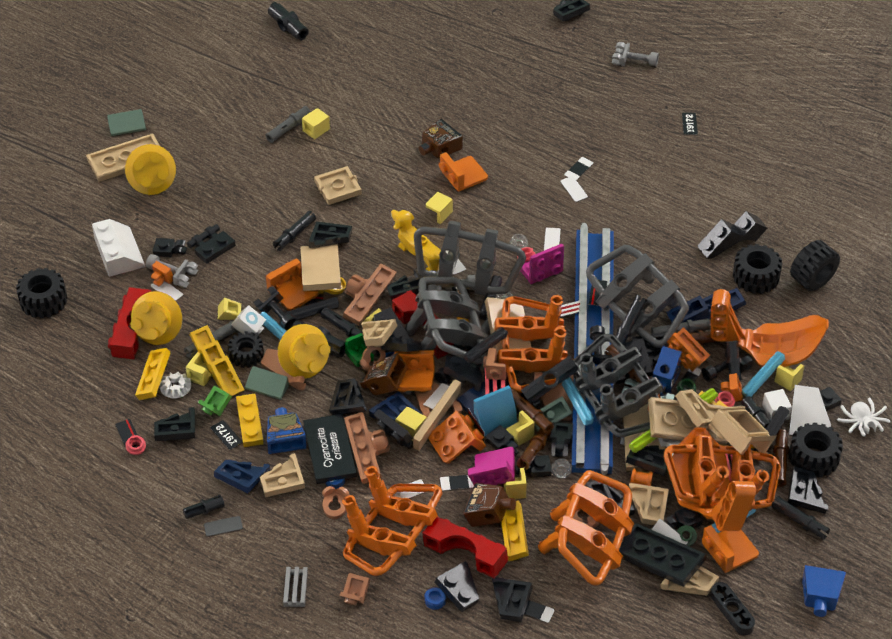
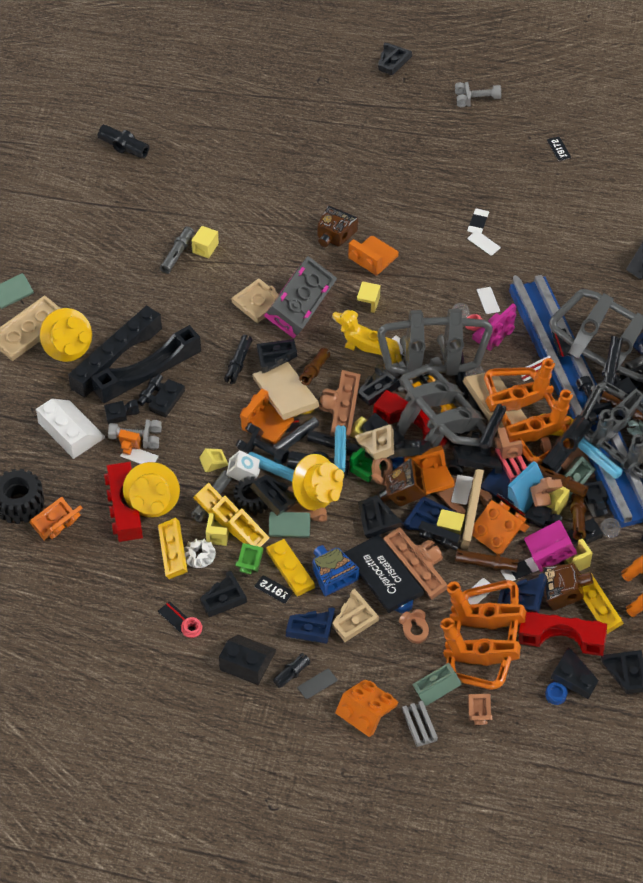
camera: 20 degrees left, 5 degrees up
(64, 320) = (54, 518): none -> orange bracket
(157, 206) = (137, 329): none -> black arch
(168, 484) = (245, 658): none -> black slope
(245, 206) = (117, 381): none -> black arch
(253, 553) = (364, 706): none -> orange bracket
(261, 351) = (274, 494): none -> black wing
(327, 557) = (437, 684): none -> sand green slope
(341, 329) = (340, 447): none -> medium azure axle
(352, 255) = (312, 370): none -> reddish brown pin
(373, 190) = (300, 297): none -> dark grey piece
(436, 467) = (496, 562): none -> reddish brown pin
(450, 502) = (529, 593): none -> dark blue wing
(508, 416) = (541, 491): none -> nougat bracket

